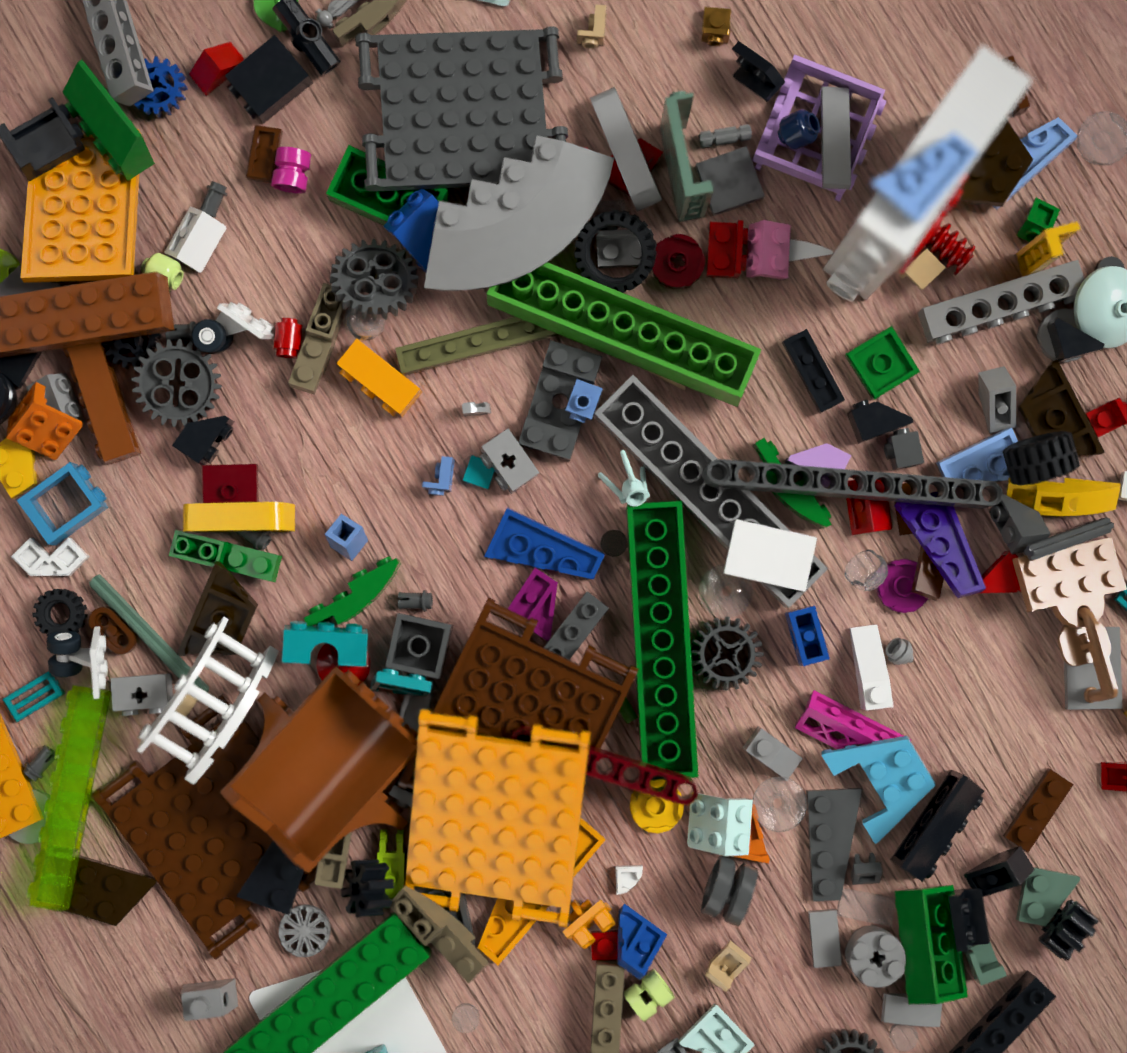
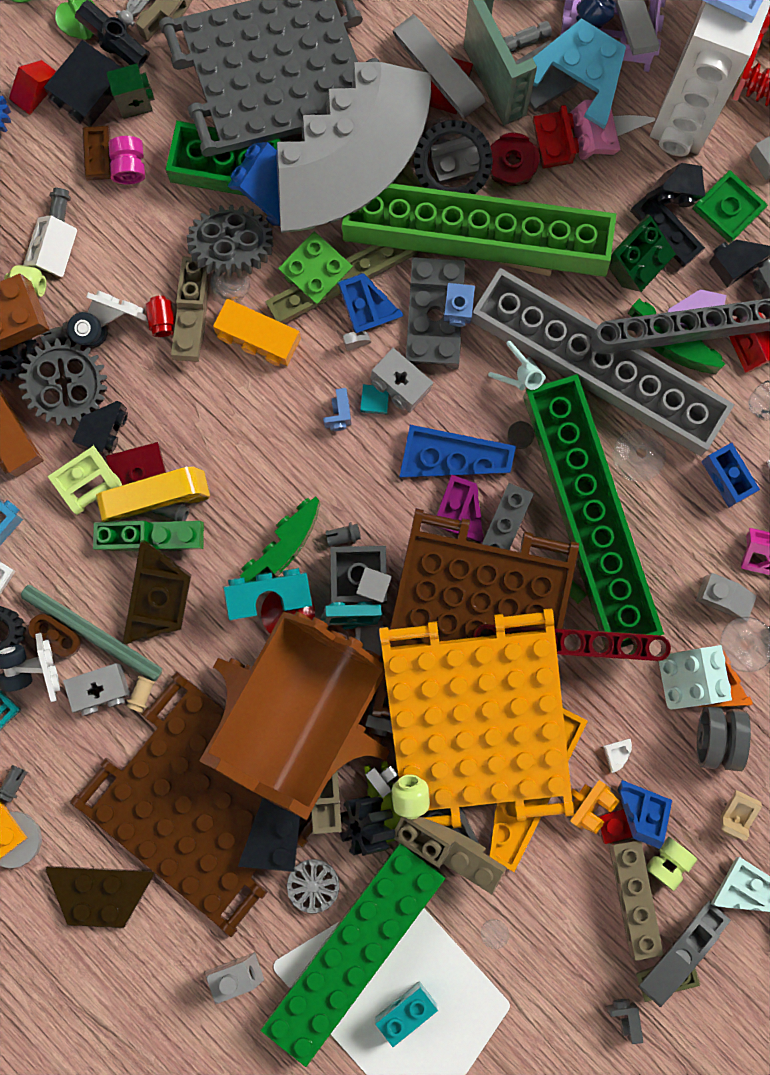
camera: 15 degrees left, 5 degrees down
(69, 799) = (48, 810): clear neon green brick -> none
(171, 478) = (78, 473): none -> yellowish green plate
(231, 714) = (191, 683): white fence -> none
(310, 101) = (131, 91): none -> dark green brick
(346, 537) = (262, 488): medium blue brick -> none
(391, 850) = (380, 780): none -> light grey tile
(413, 874) = (410, 797): none -> yellowish green head
(429, 661) = (374, 585): none -> light grey tile
(452, 326) = (315, 267): none -> bright green hinge
(494, 375) = (366, 303): none -> blue wing
(655, 813) = (627, 679): yellow tile -> none
(739, 672) = (666, 519): dark grey gear -> none
(770, 555) = (676, 404): white tile -> none
(776, 178) = (590, 59): none -> medium azure wing
(777, 396) = (641, 256): none -> dark green slope
(836, 330) = (679, 186): none -> black slope
(923, 269) = (745, 110): tan panel -> none

